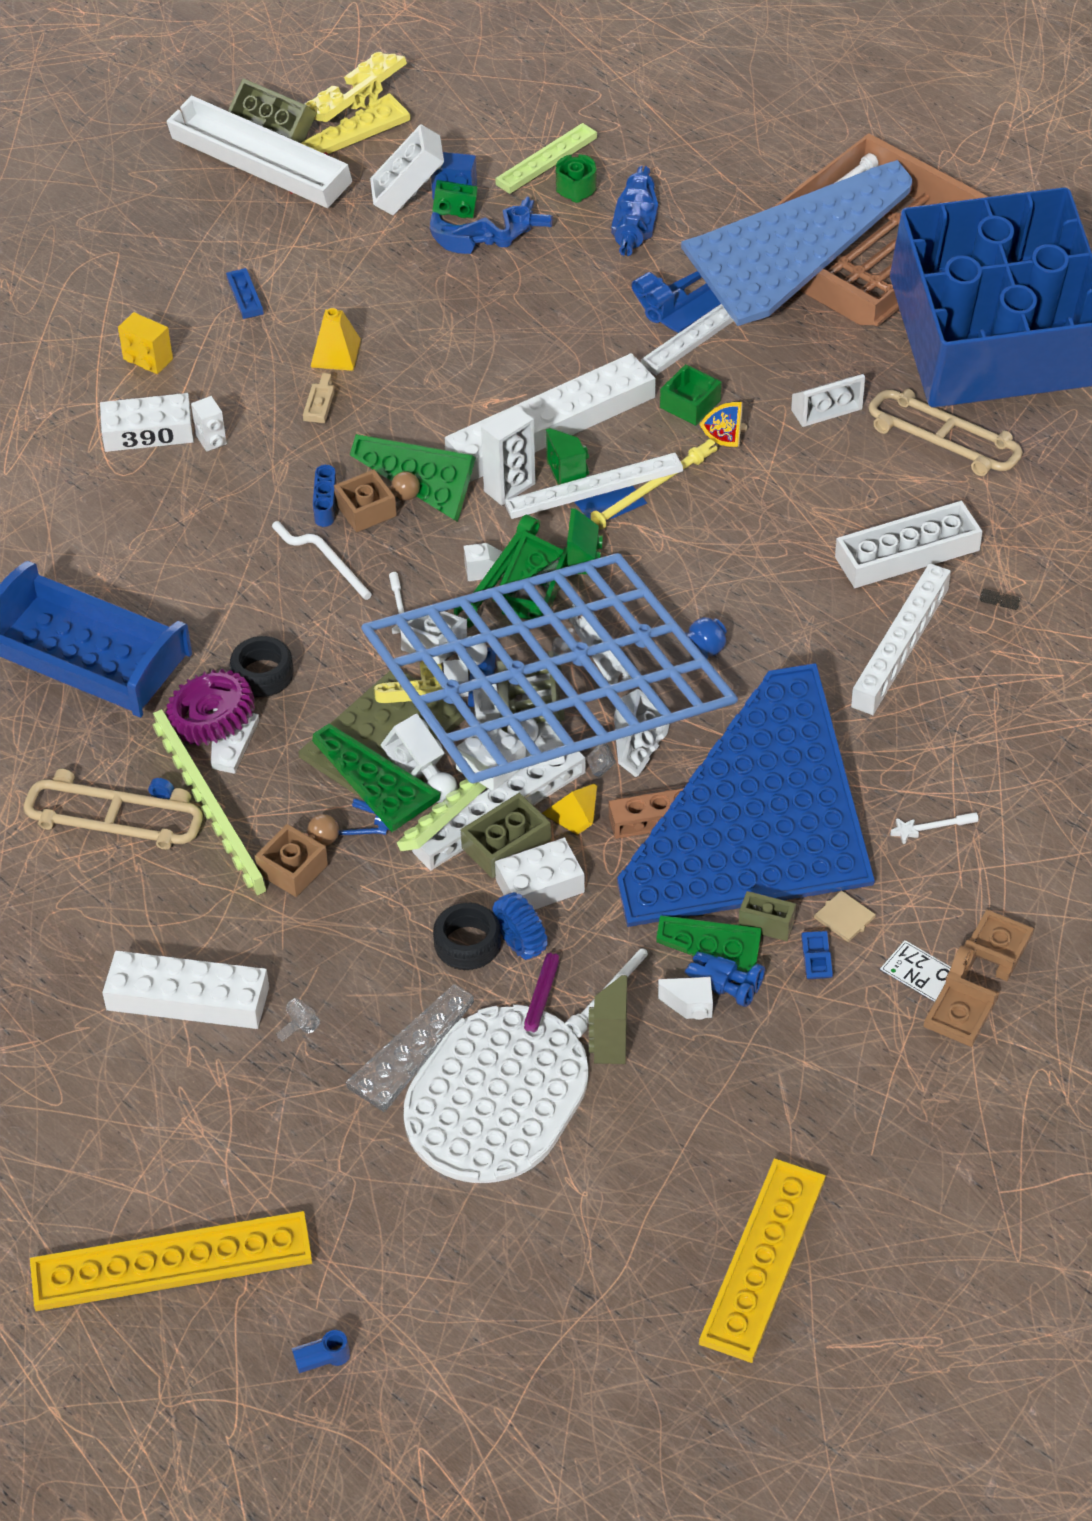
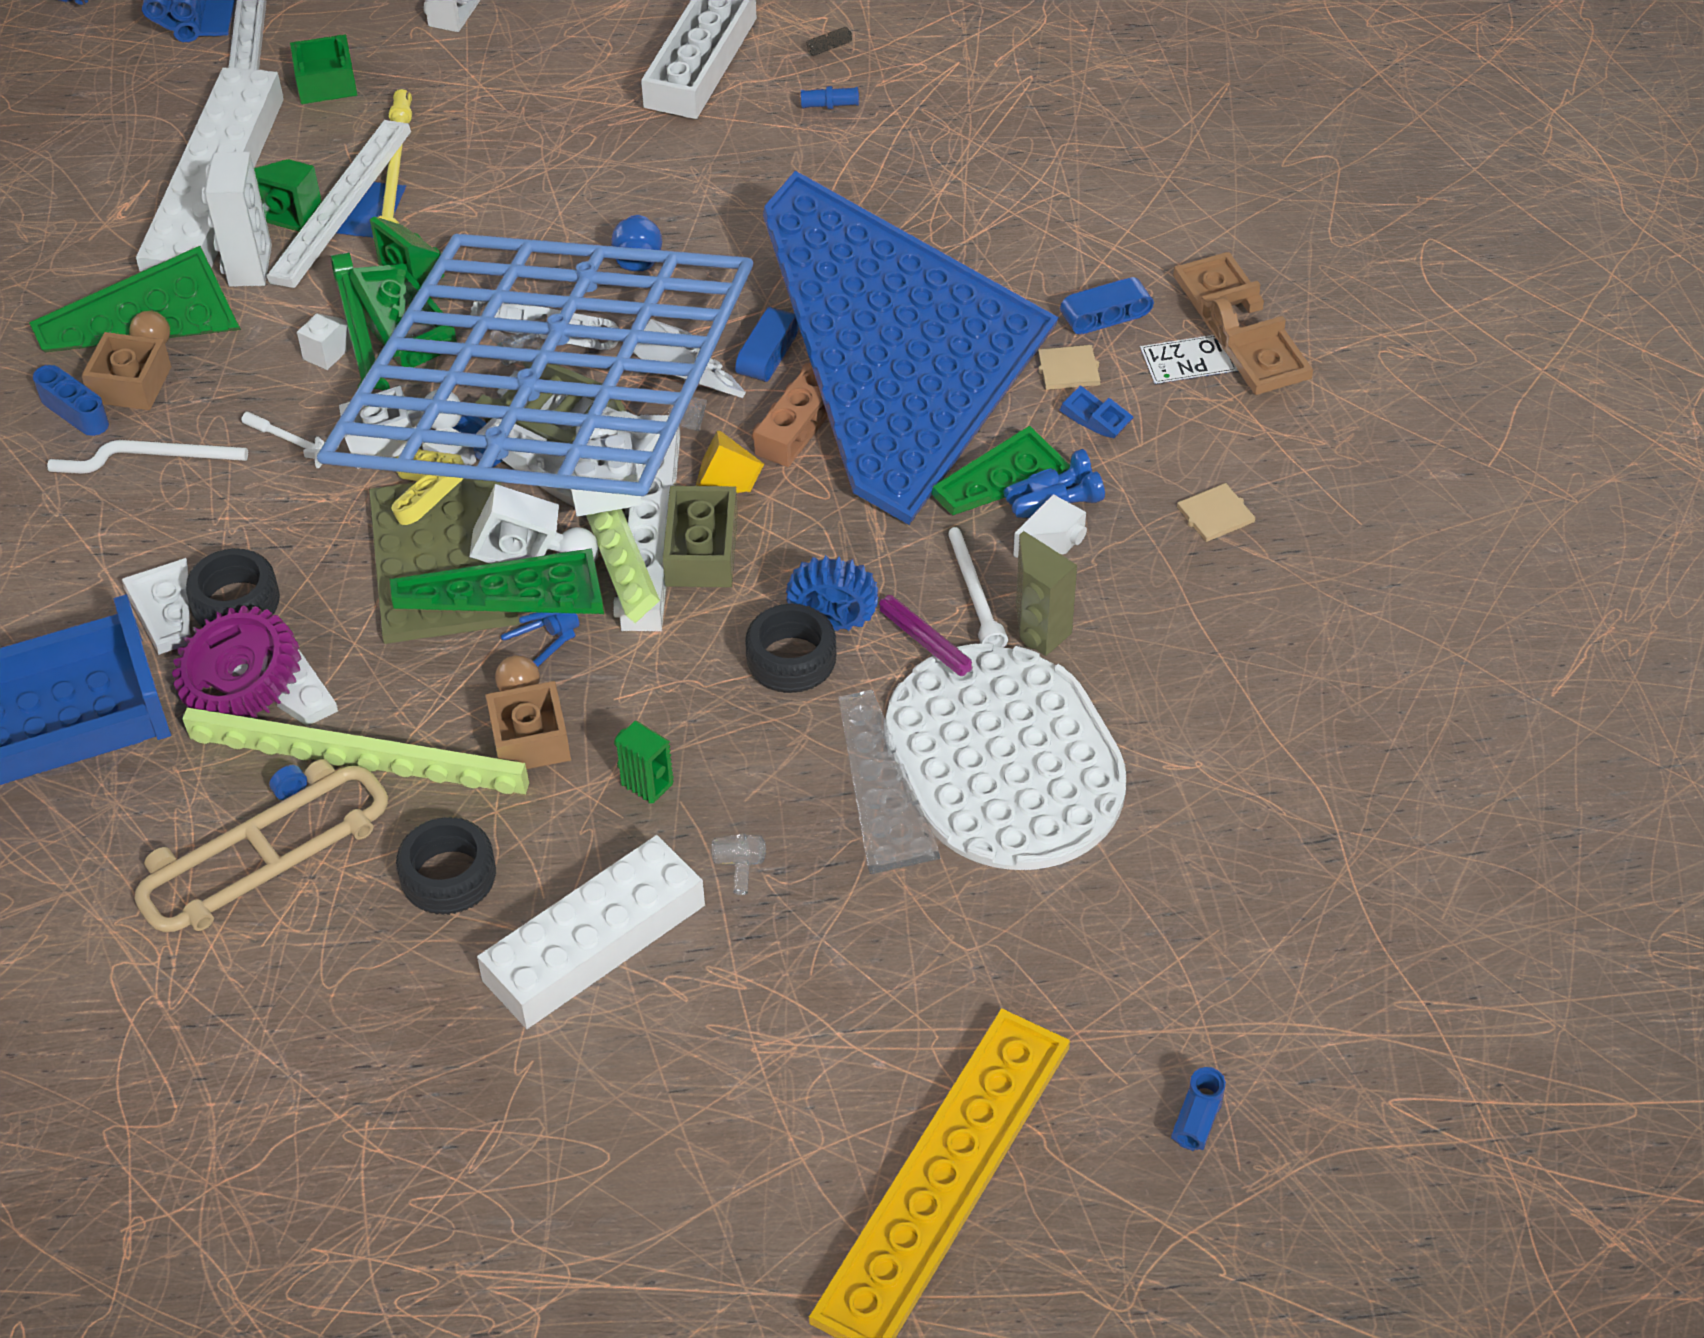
camera: 50 degrees left, 0 degrees up
(164, 876) = (439, 837): none -> black tyre
(223, 642) = (162, 604): none -> white wing
(314, 927) = (644, 761): none -> green brick
(541, 874) = (777, 541): white brick -> none
(683, 760) = (767, 344): none -> blue beam
(724, 424) = (394, 68): shield -> none
(762, 1261) = (1417, 676): yellow plate -> none
(771, 914) = (1023, 406): olive brick -> none
(799, 1071) = (1216, 512): none -> tan piece
(900, 639) = (799, 120): white brick -> none
(908, 829) = (1020, 264): white piece -> none
(914, 898) = (1106, 305): none -> blue beam
(946, 636) = (830, 97): none -> blue pin

